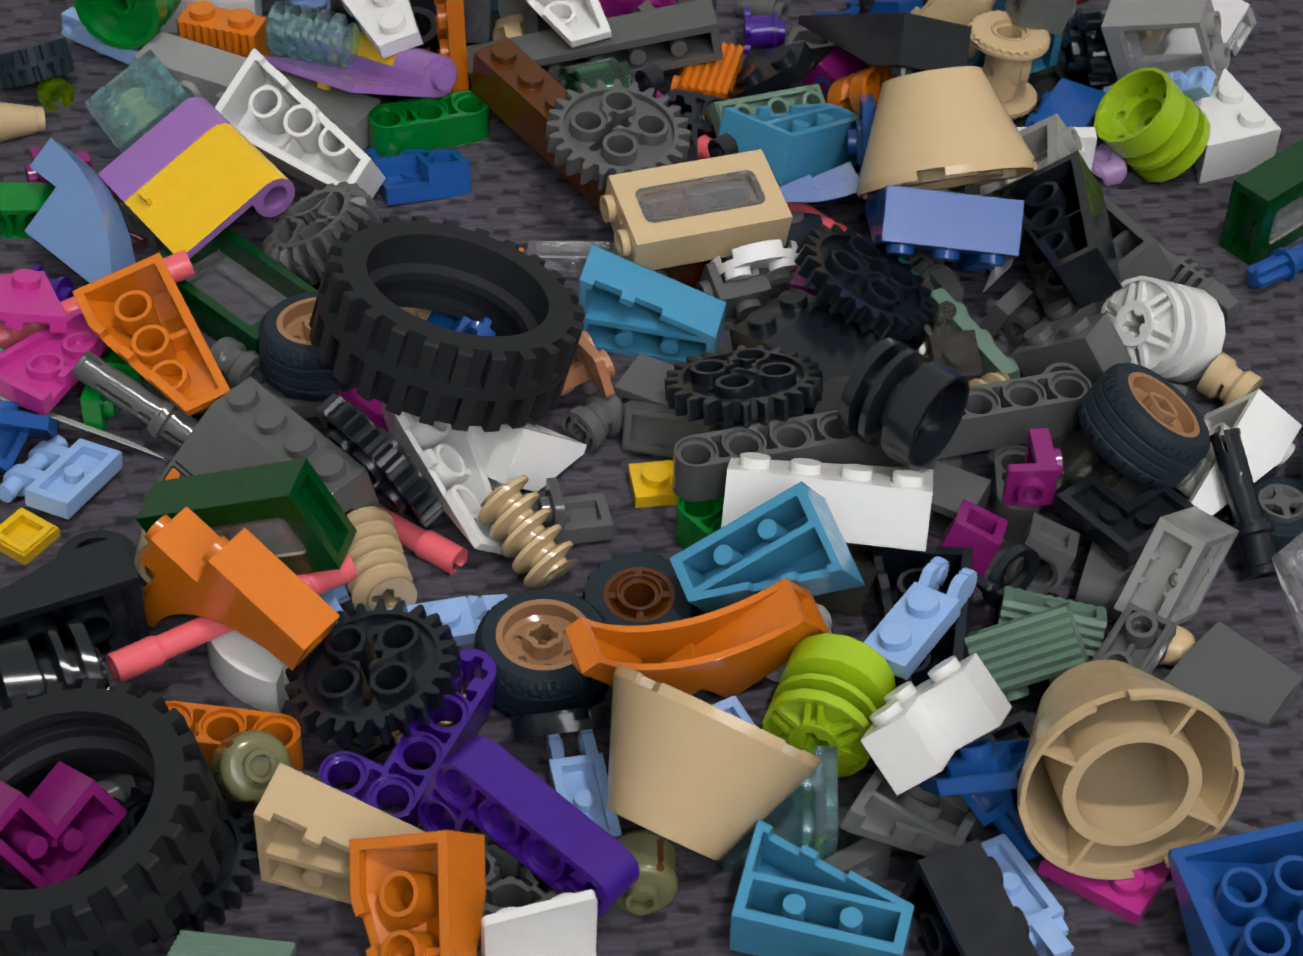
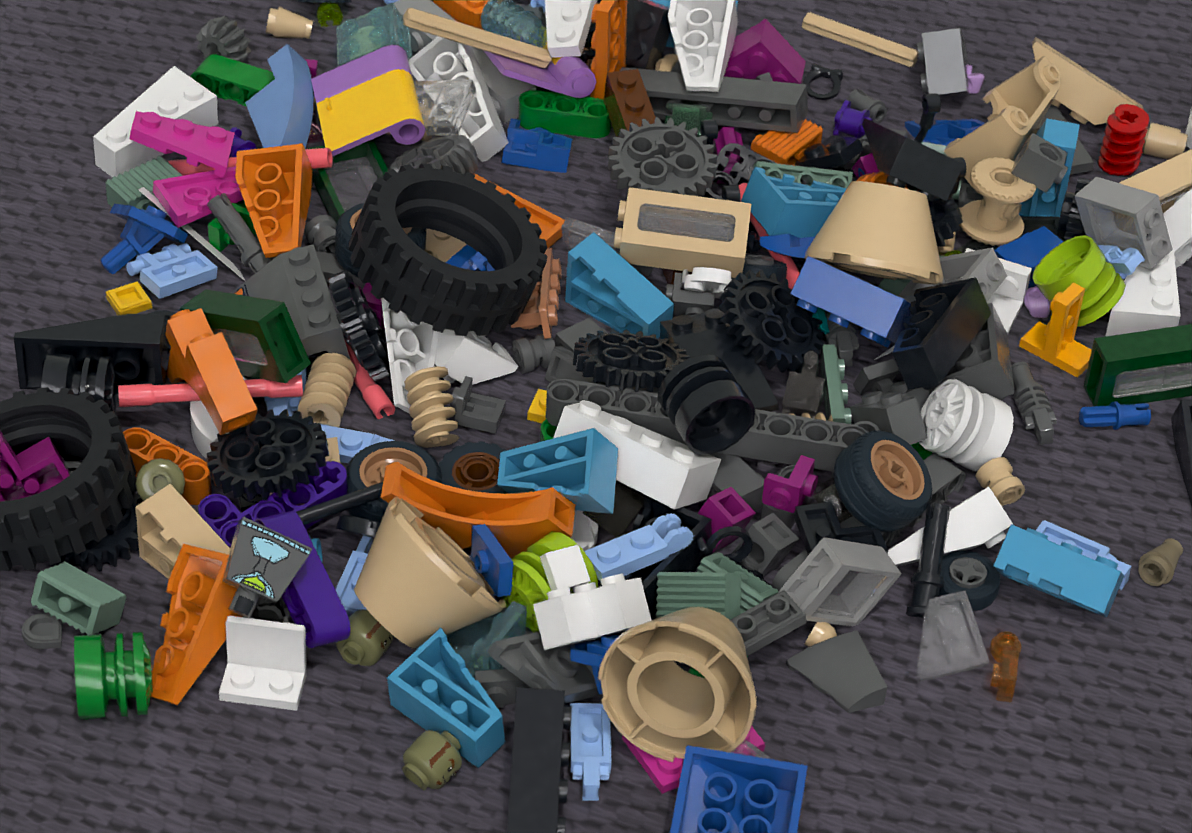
camera: 25 degrees right, 0 degrees up
(291, 57) = (476, 37): none -> tan axle
(298, 150) = (444, 104): none -> clear wing
(500, 828) = (261, 565): none -> dark grey torso
(515, 697) = (340, 503): none -> black bar
(760, 701) = (491, 560): none -> blue plate
(867, 678) = (565, 568): none -> white tile
(1162, 206) = (1056, 339): none -> light orange bracket

